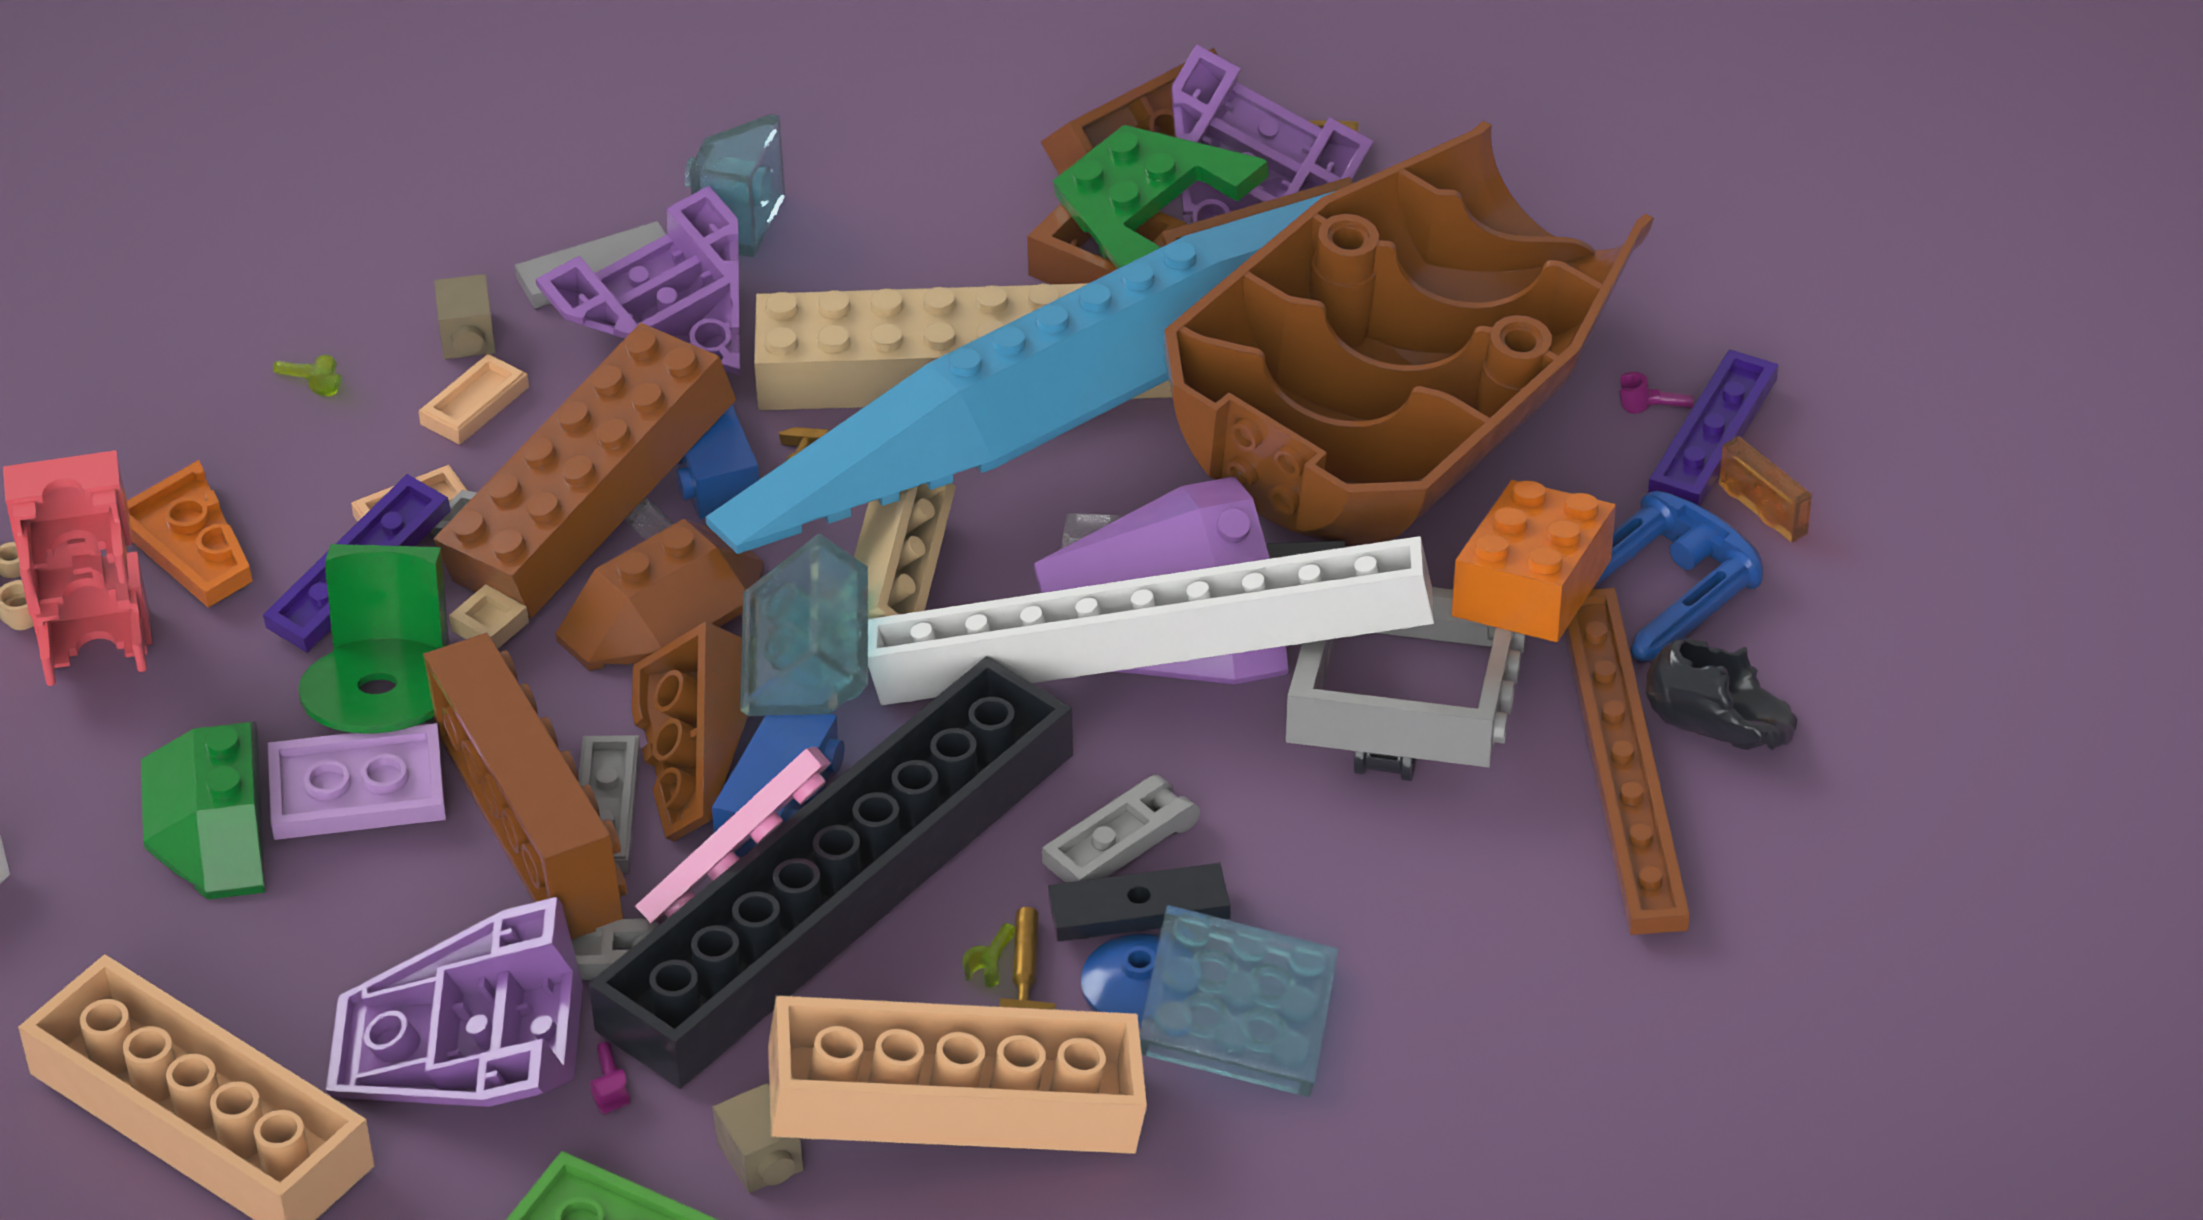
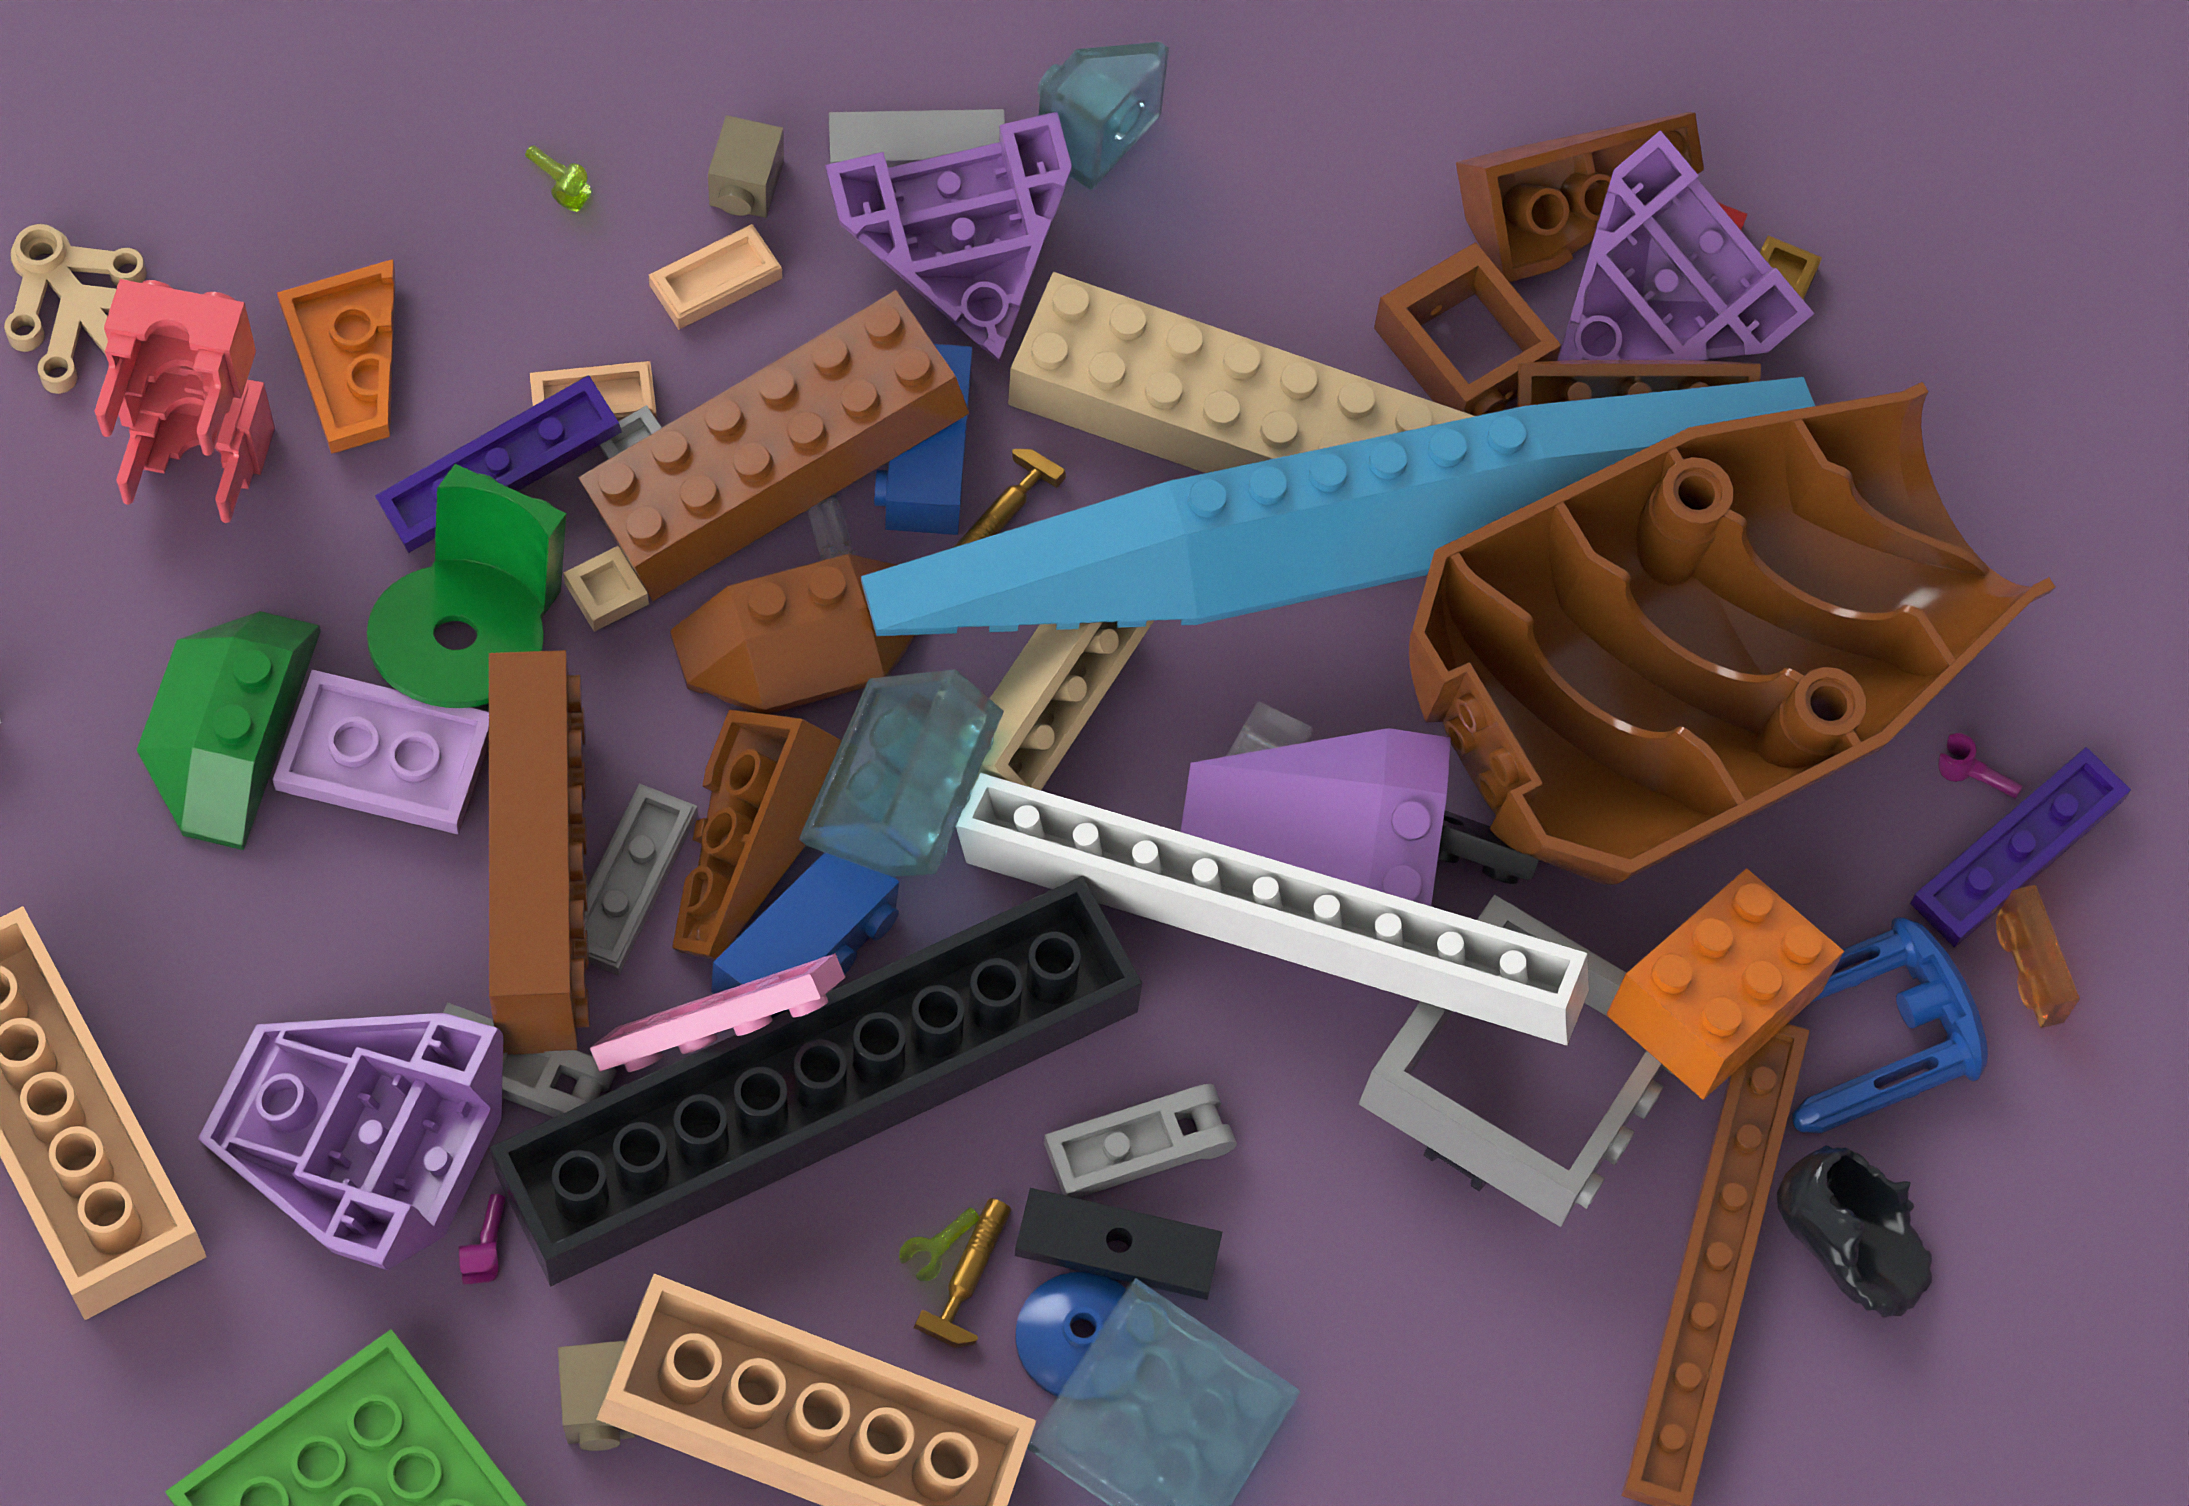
camera: 15 degrees right, 20 degrees up
(1137, 176) = (1523, 271): green wing -> none

